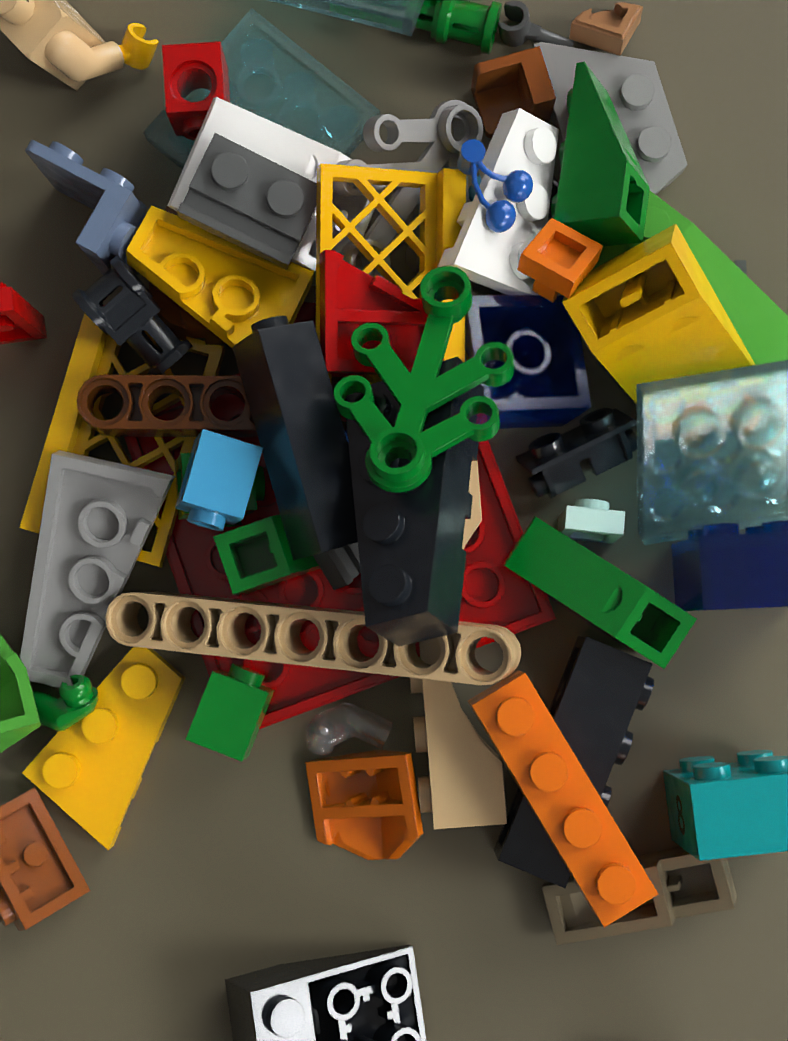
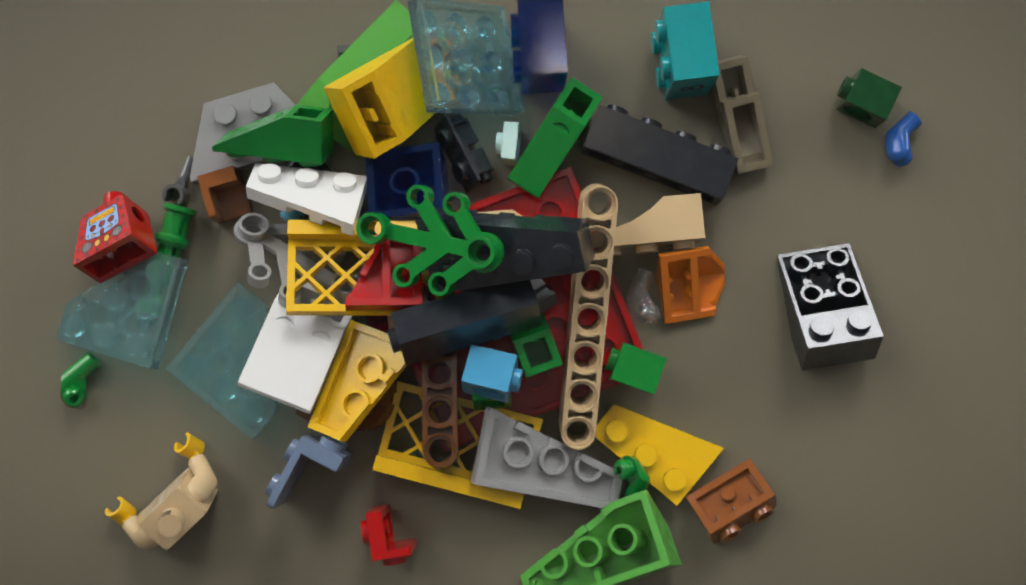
camera: 90 degrees left, 0 degrees up
(129, 315) = (379, 440): black connector -> none
(188, 69) = (211, 405): red brick -> none
(250, 201) = (308, 358): dark grey plate -> none
(516, 186) = (299, 187): blue piece -> none
(558, 260) = (346, 160): orange tile -> none
(562, 798) = (683, 158): orange brick -> none
(607, 29) = (180, 133): medium nougat tile -> none

